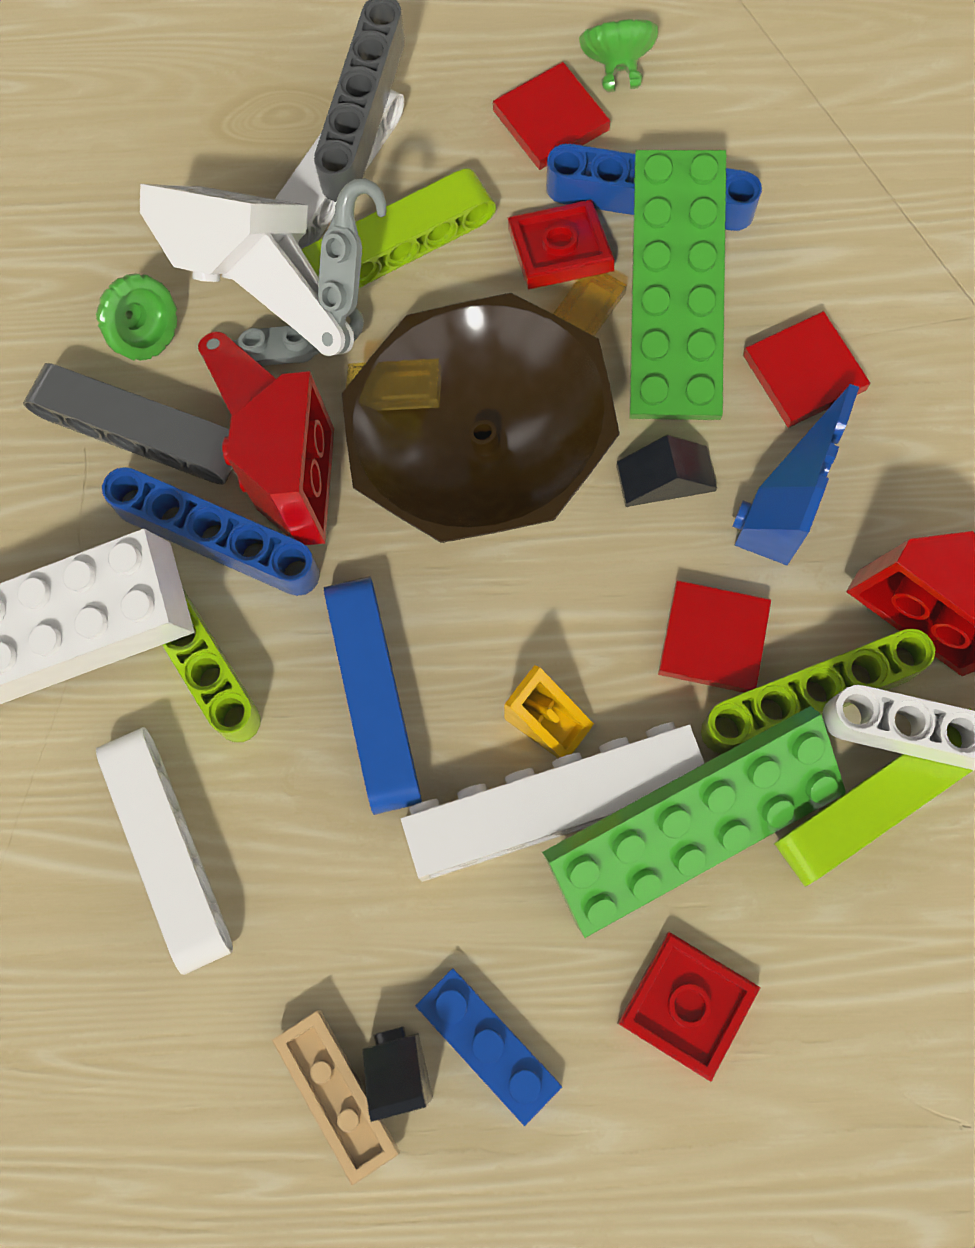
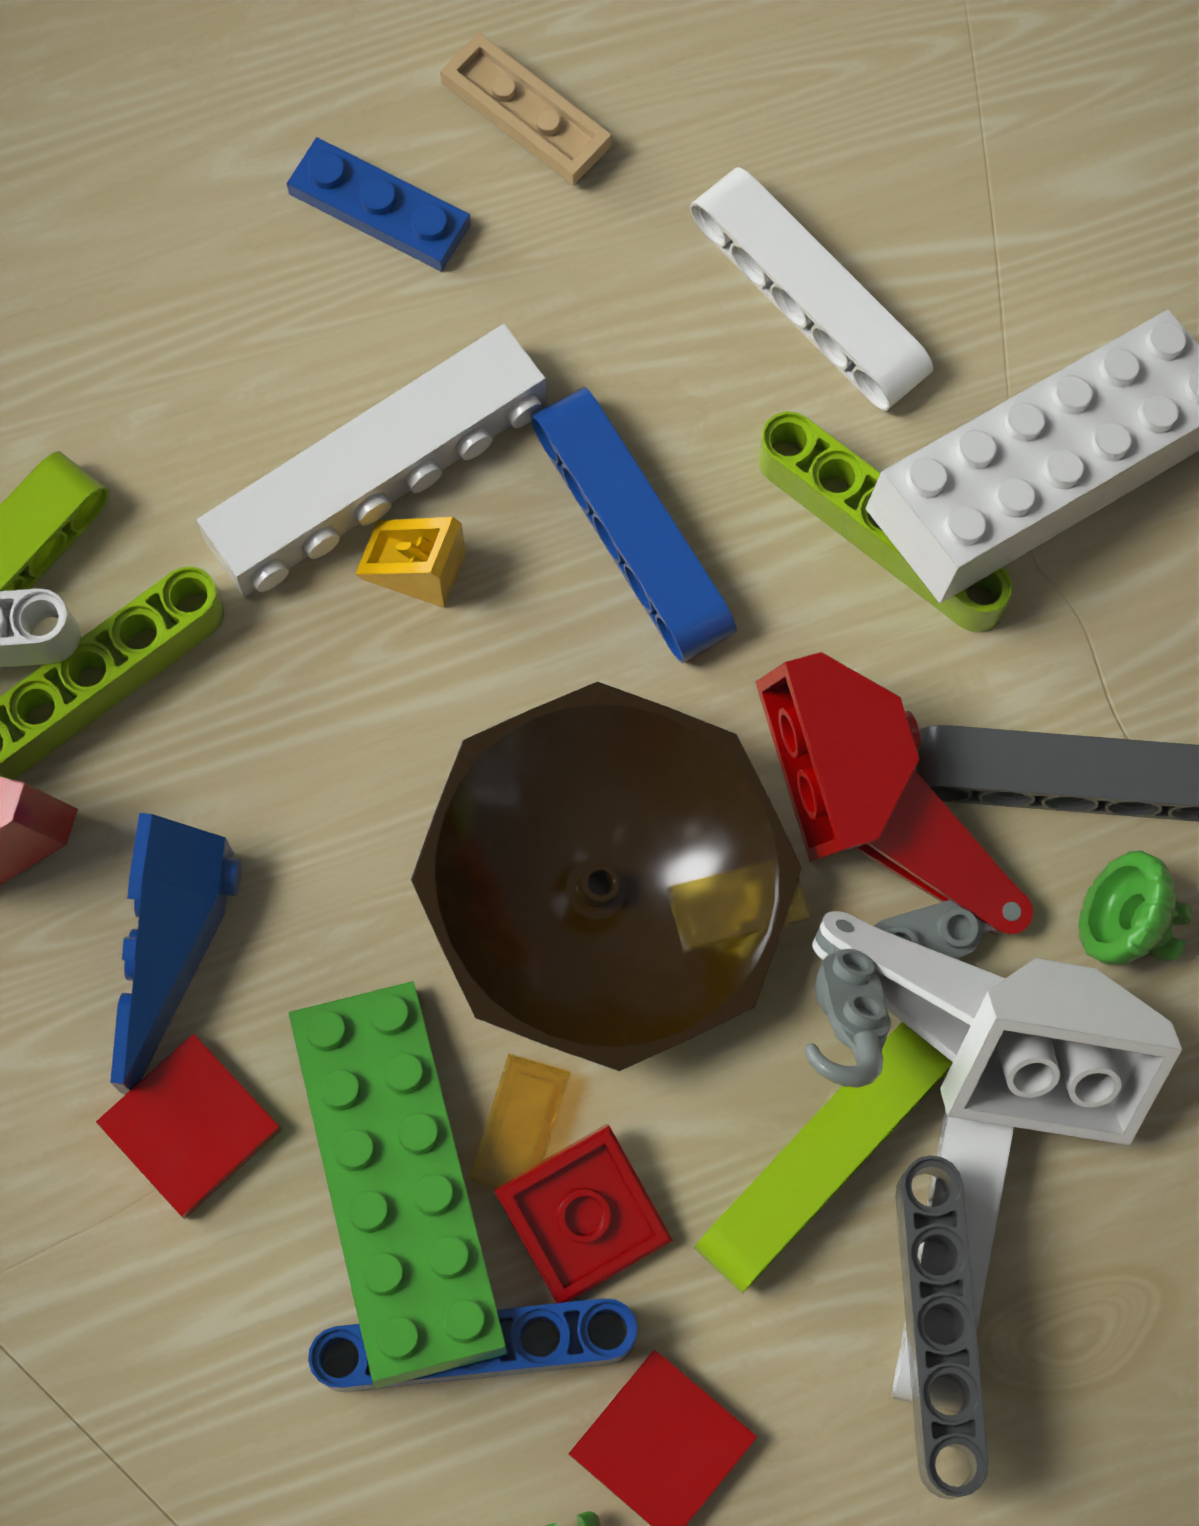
camera: 160 degrees right, 0 degrees up
(196, 516) = (935, 646): blue beam -> none
(395, 1074) = (463, 130): black slope -> none
(665, 471) = (342, 914): black slope -> none
(689, 1006) = (168, 304): red tile -> none
(696, 821) = (200, 478): bright green plate -> none
(714, 637) = (231, 718): red tile -> none

